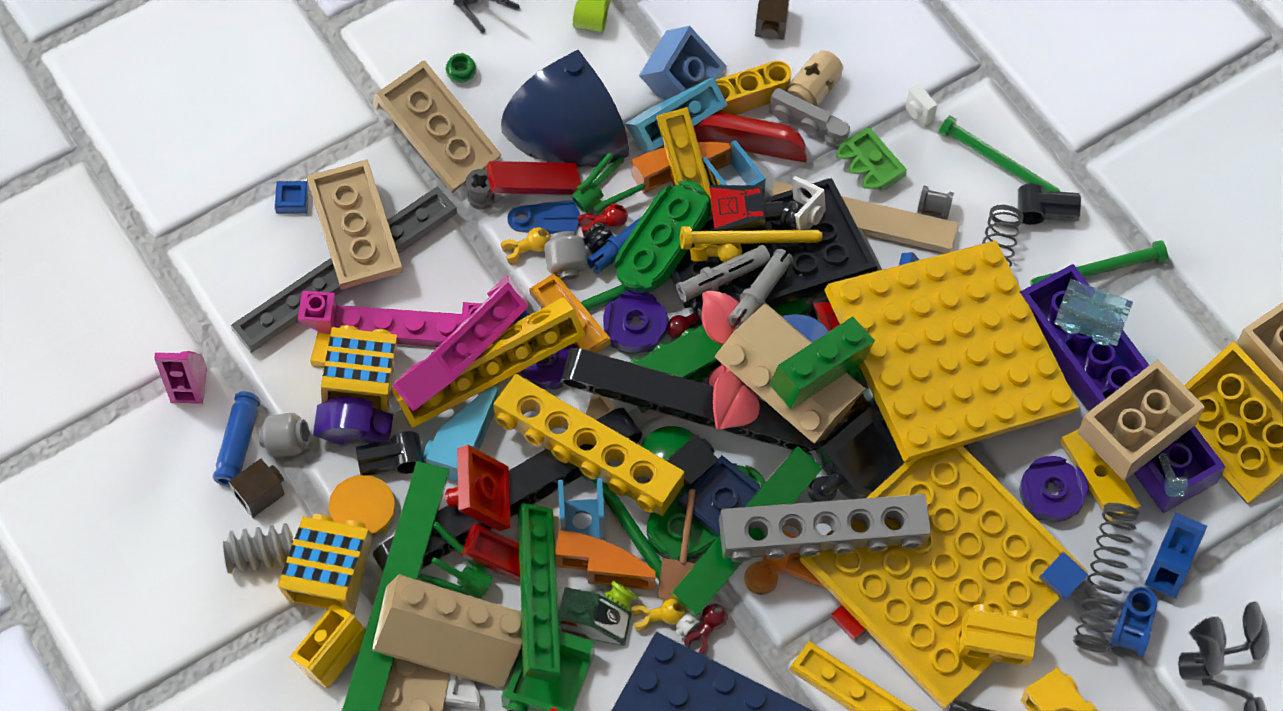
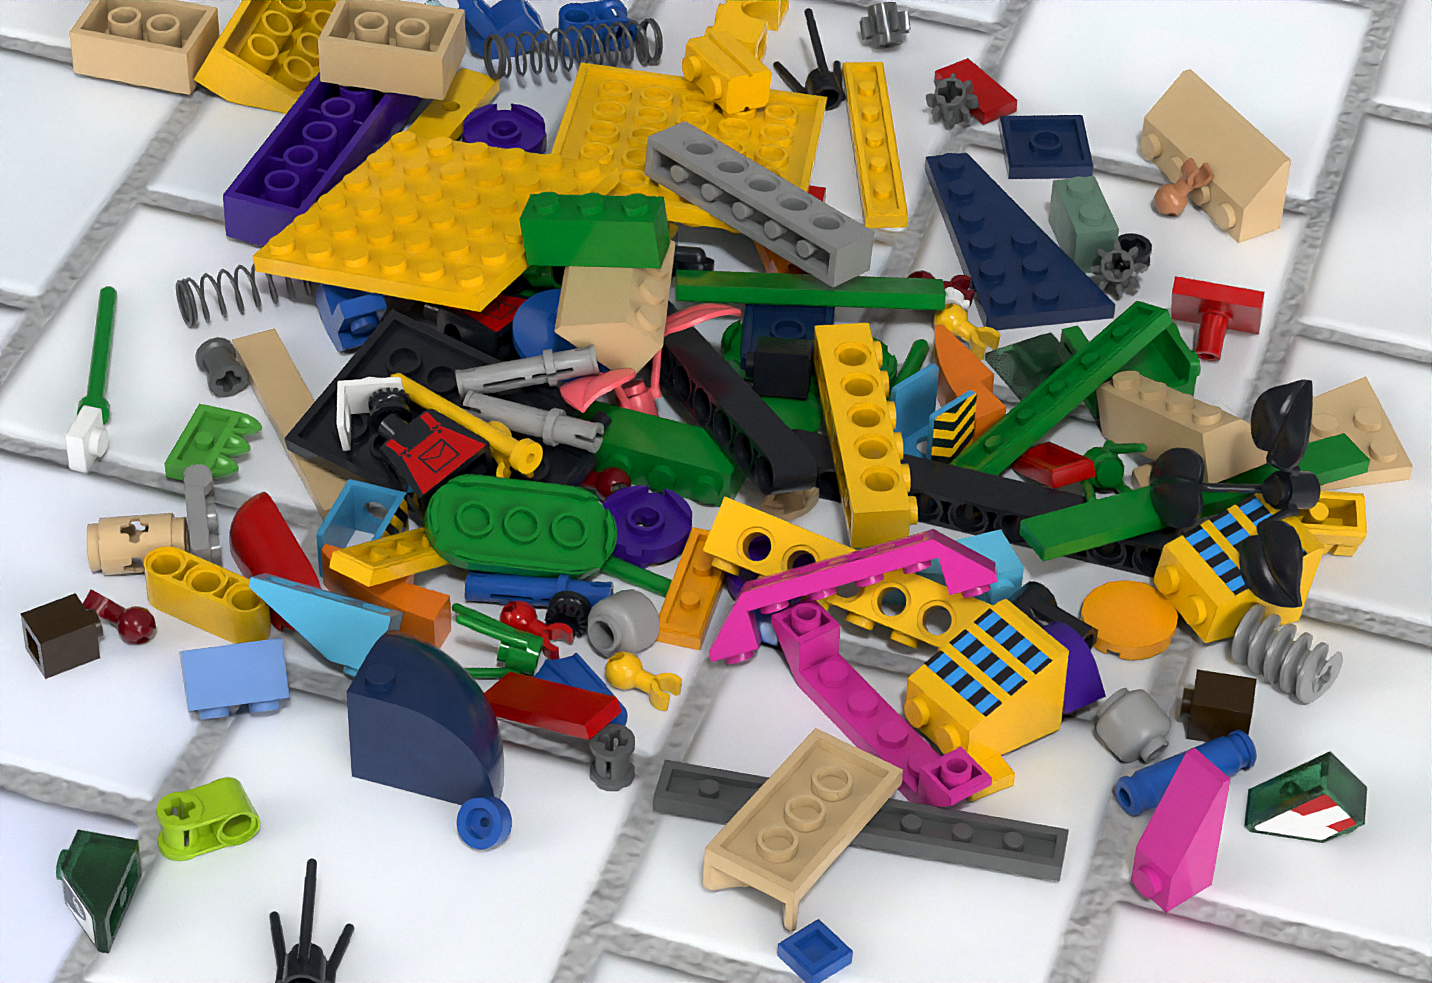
camera: 130 degrees left, 20 degrees down
(161, 472) = (1308, 802): none -> clear green slope
(323, 586) = (1274, 557): none -> black plant
(436, 125) = (566, 847): tan plate -> none
(459, 61) = (440, 900): green plate -> none
(481, 488) = (1021, 471): red tile -> none
(488, 112) = (484, 822): none -> blue tile
(621, 594) = (985, 351): lime bush -> none
(674, 570) = (907, 331): nougat piece -> none
(759, 51) = (134, 624): none -> dark red arm
(1040, 204) = (139, 287): black piece -> none
(1063, 576) = (608, 65): blue tile -> none
(1093, 313) = (287, 136): clear light blue brick -> none
(1156, 252) = (119, 185): green bar -> none

